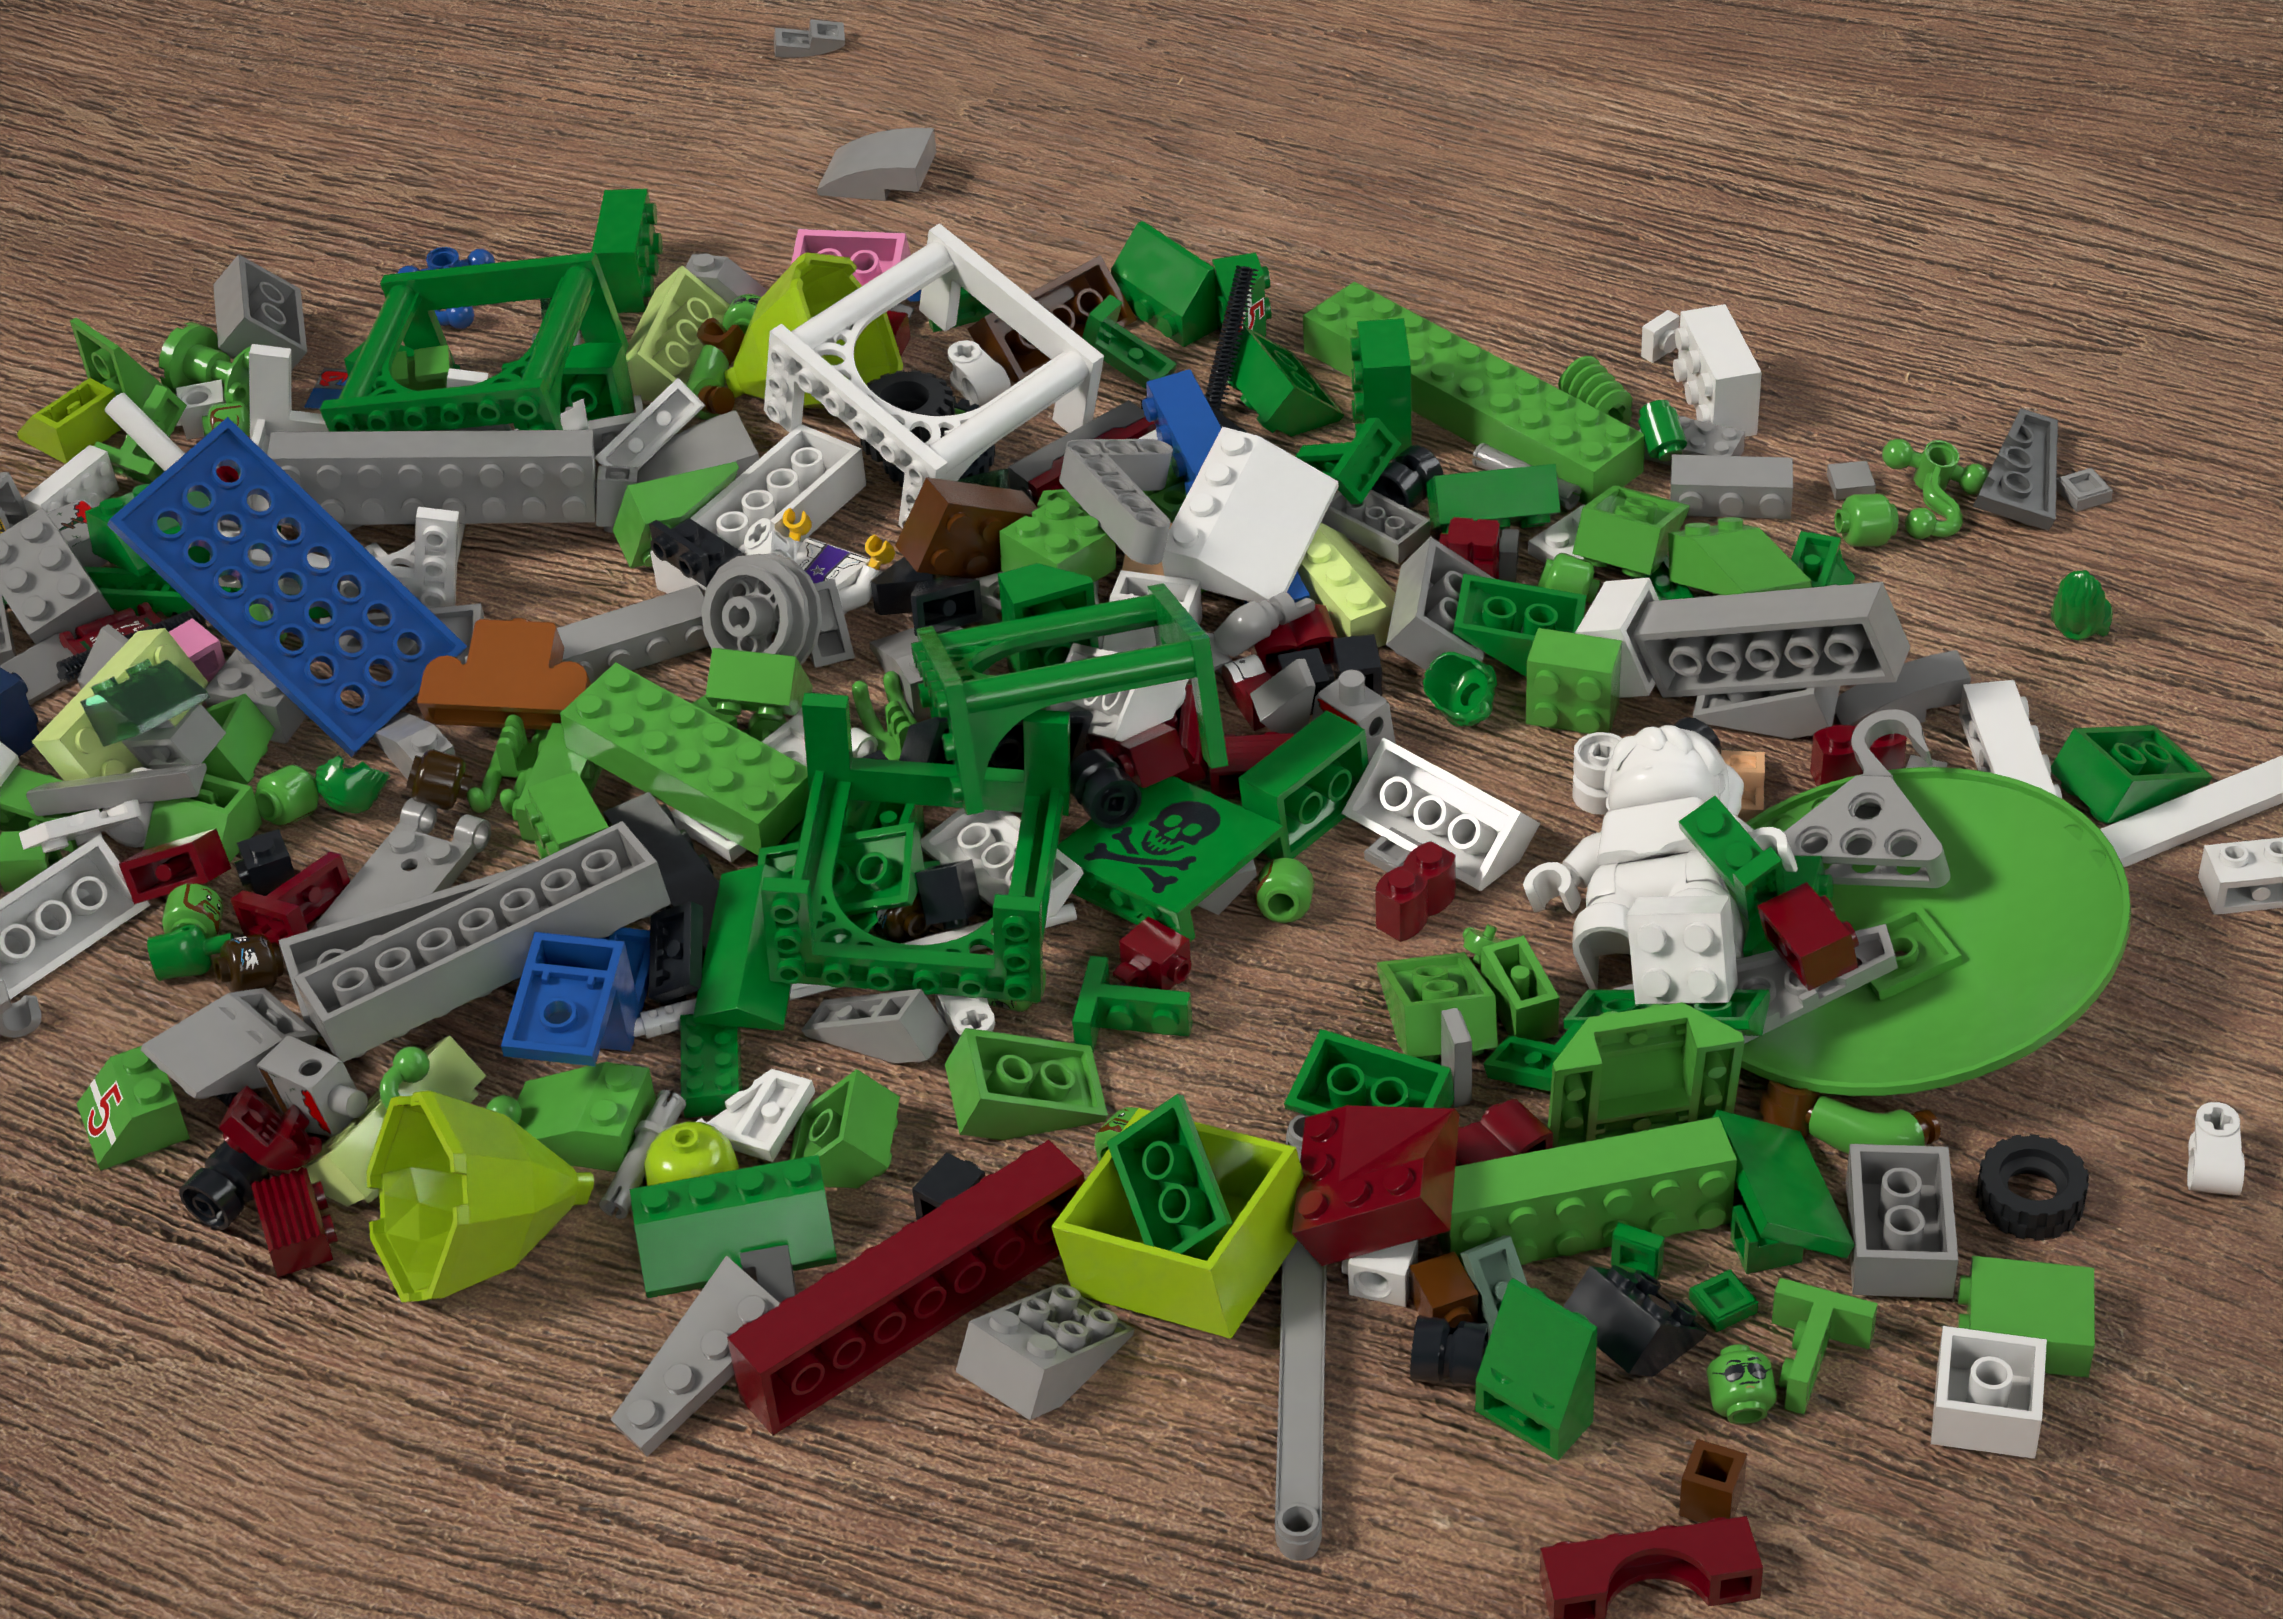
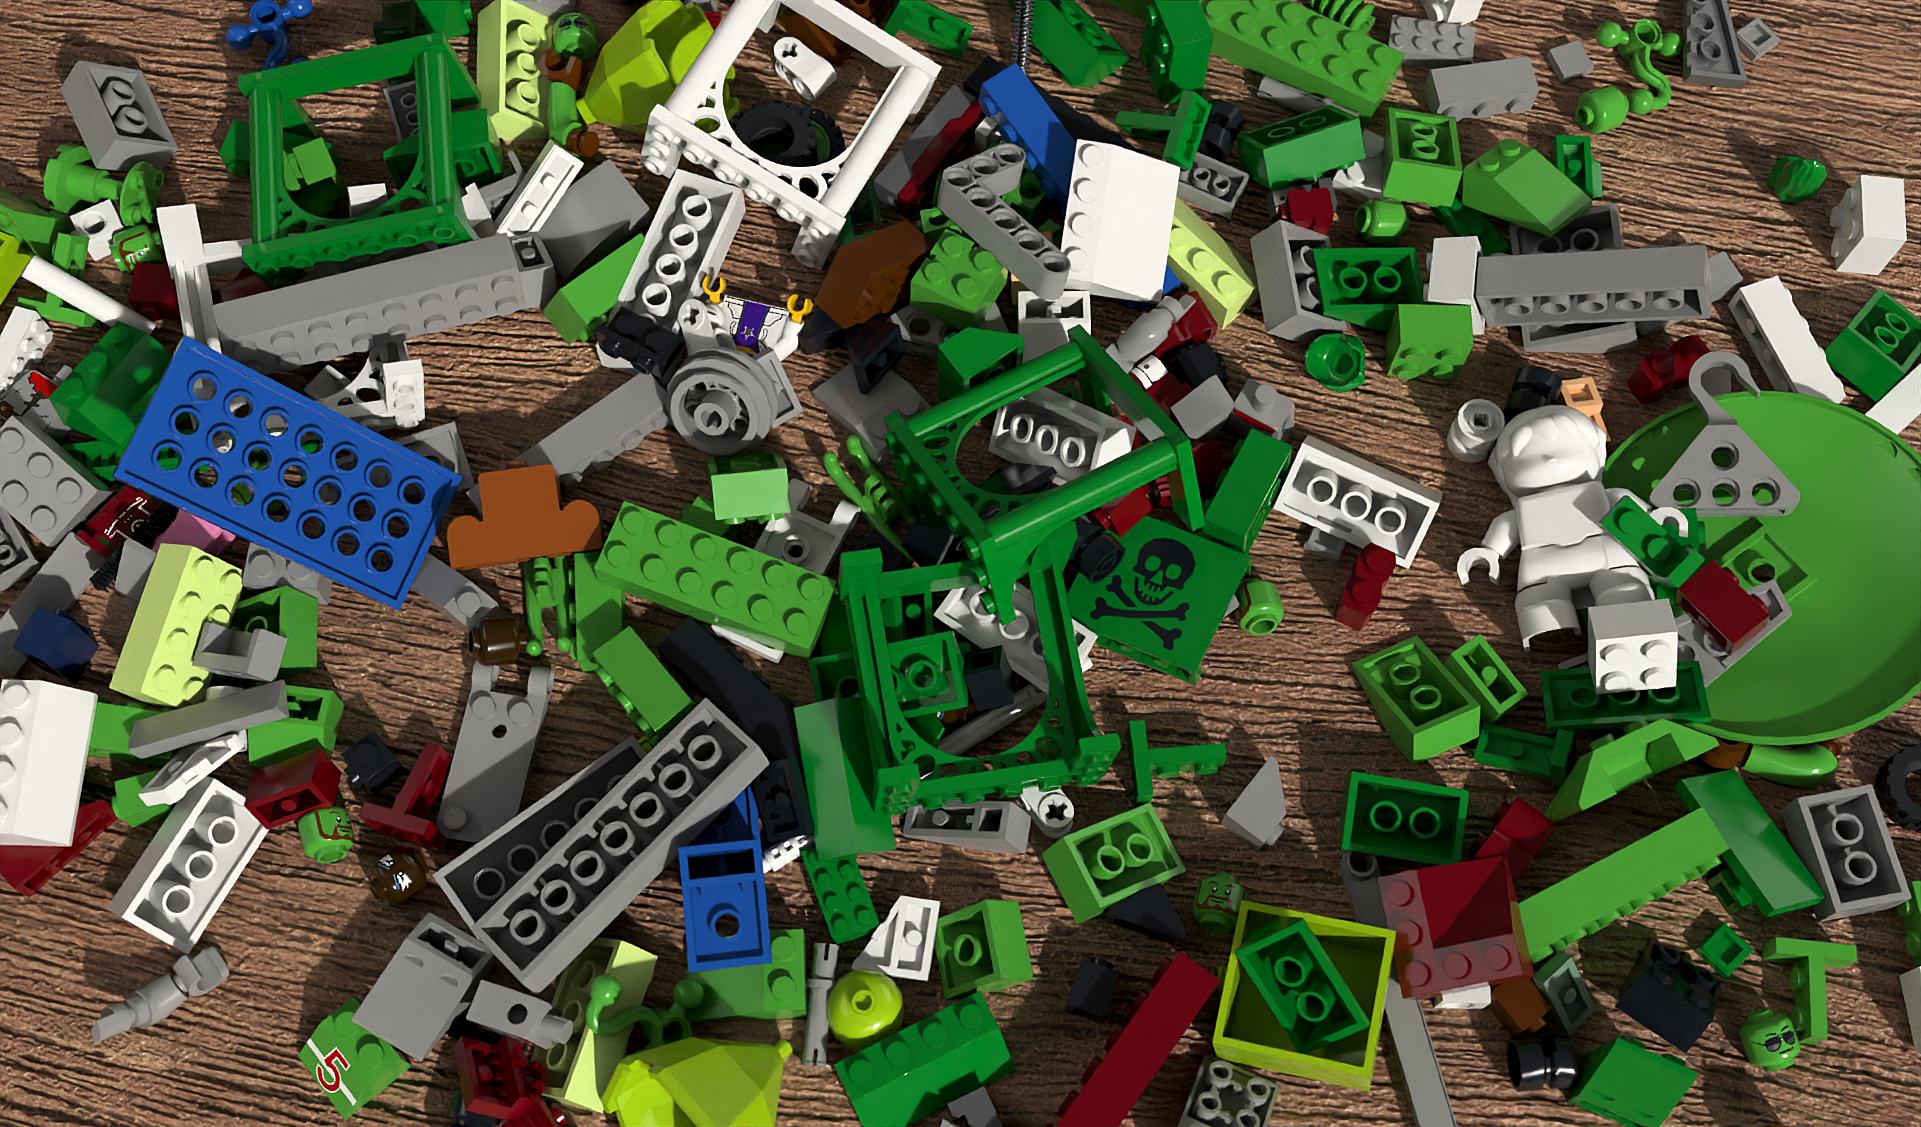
camera: 20 degrees left, 25 degrees up
(141, 700) = (206, 639): clear green slope -> none
(183, 952) = (335, 874): green piece -> none
(287, 795) = (358, 675): bright green head -> none
(327, 387) = (207, 177): sticker -> none
(349, 788) = (413, 654): green hair -> none
(1031, 1126) = (1149, 915): none -> black slope
(1153, 956) = (1175, 702): dark red brick -> none
(1209, 1065) = (1259, 808): none -> light grey slope
(1359, 654) = (1239, 347): black brick -> none
(1457, 1054) = (1460, 764): light grey tile -> none
(1476, 939) = (1432, 628): bright green piece -> none
(1637, 1250) = (1651, 923): green tile -> none
(1661, 430) = (1417, 46): green brick -> none
(2146, 654) = (1869, 225): none -> white brick

